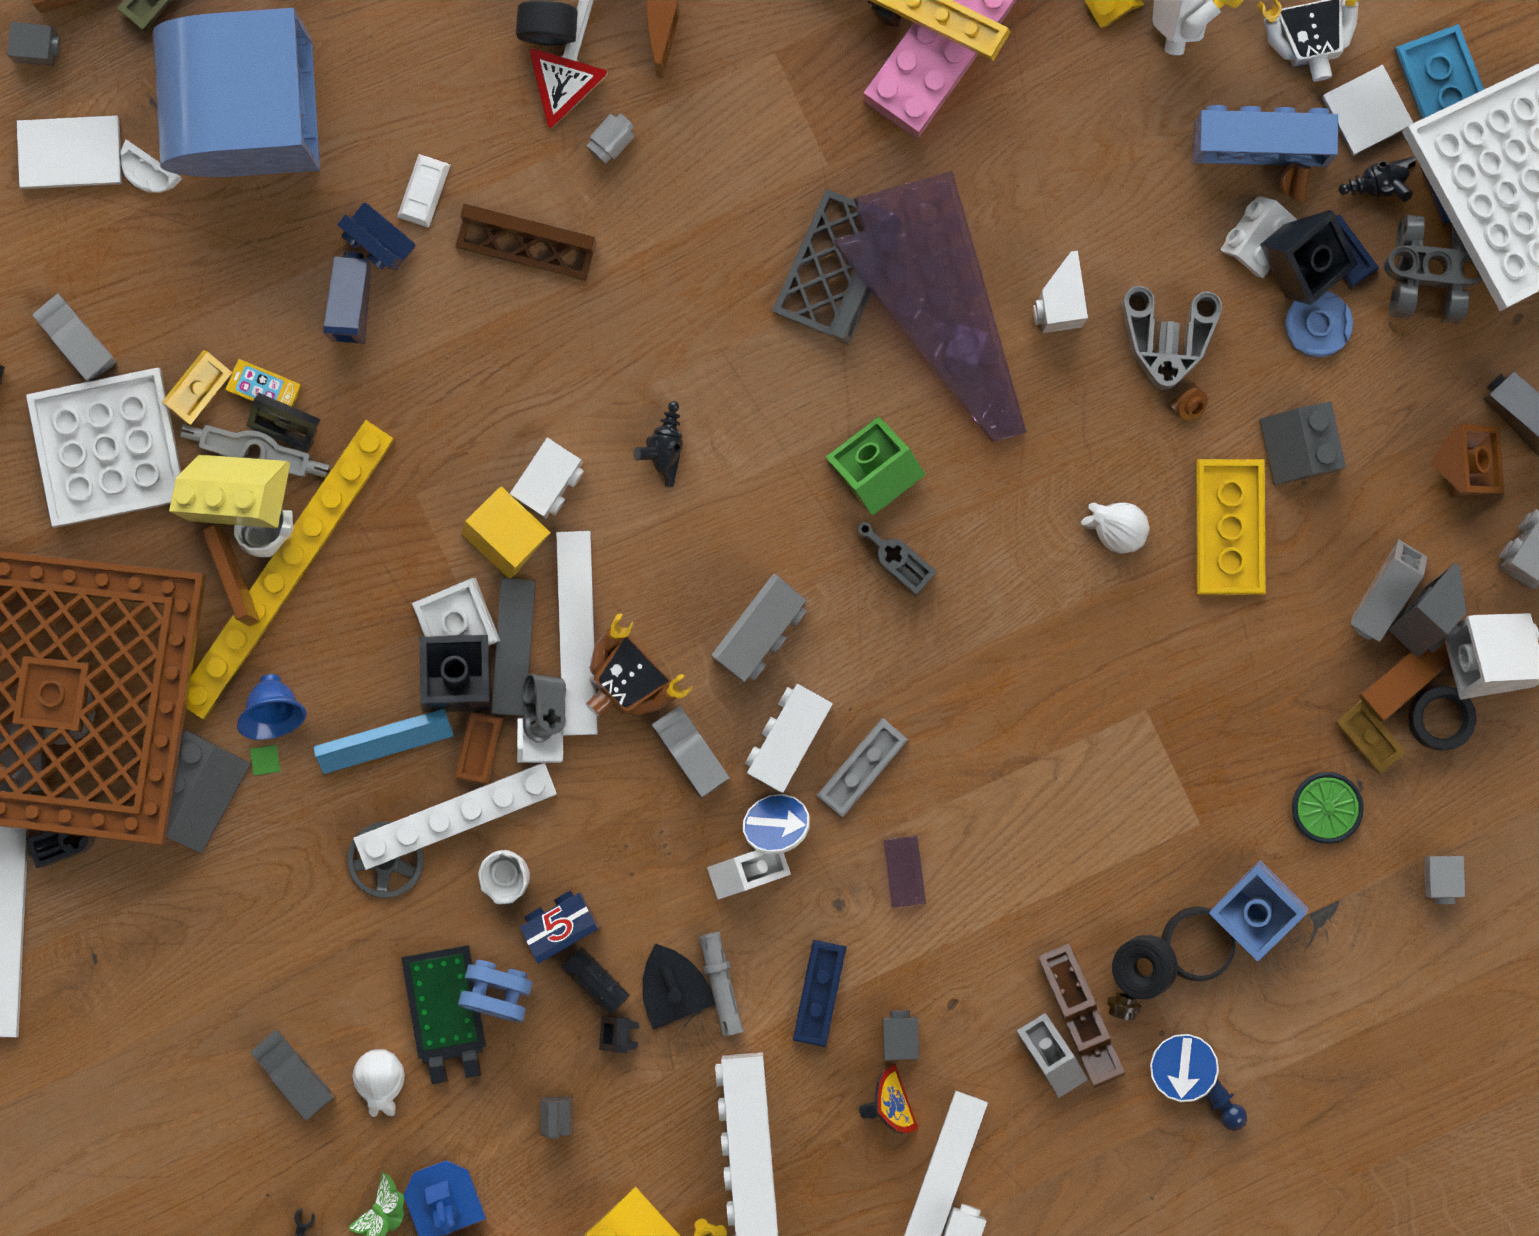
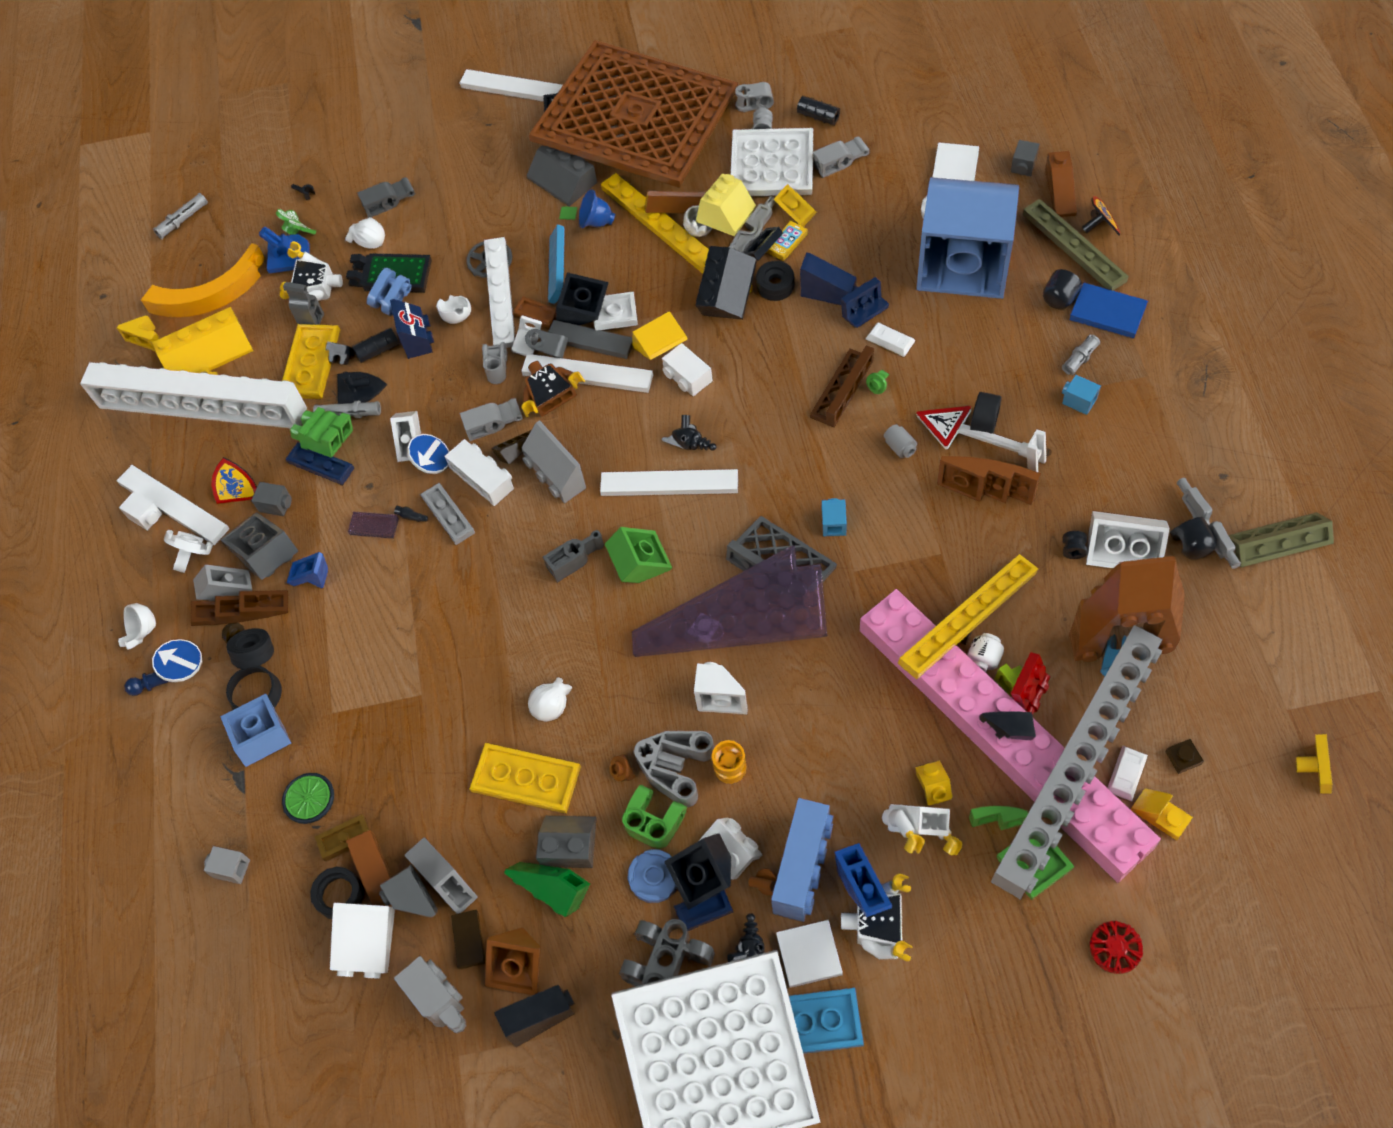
camera: 110 degrees right, 25 degrees down
(24, 482) = (762, 119): none -> light grey wheel
(344, 367) = (777, 291): none -> black tyre
(384, 453) = (725, 283): none -> slope
(492, 1135) = (312, 273): none -> torso
(514, 191) = (876, 382): none -> bright green plate
(585, 781) = (495, 362): none -> light grey piece
(640, 1082) = (309, 360): none -> yellow tile
(743, 456) = (669, 482): none -> white tile
(746, 694) = (510, 449): none -> dark brown slope
(756, 206) = (834, 517): none -> dark azure brick
(772, 999) = (321, 430): none -> bright green hips
(876, 823) = (410, 514): none -> black piece
(978, 1027) = (260, 545): none -> dark grey slope
(1007, 935) = (309, 569): none -> blue slope
(1010, 1128) = (186, 543): none -> white tile
(1143, 1151) = (138, 623): none -> white piece
(1154, 261) = (729, 761): none -> light orange wheel
(1257, 344) = (651, 823): none -> bright green piece
(1281, 55) = (861, 880): none -> blue slope
(1366, 446) = (553, 885): none -> green slope
(1454, 532) = (468, 939): none -> dark brown tile

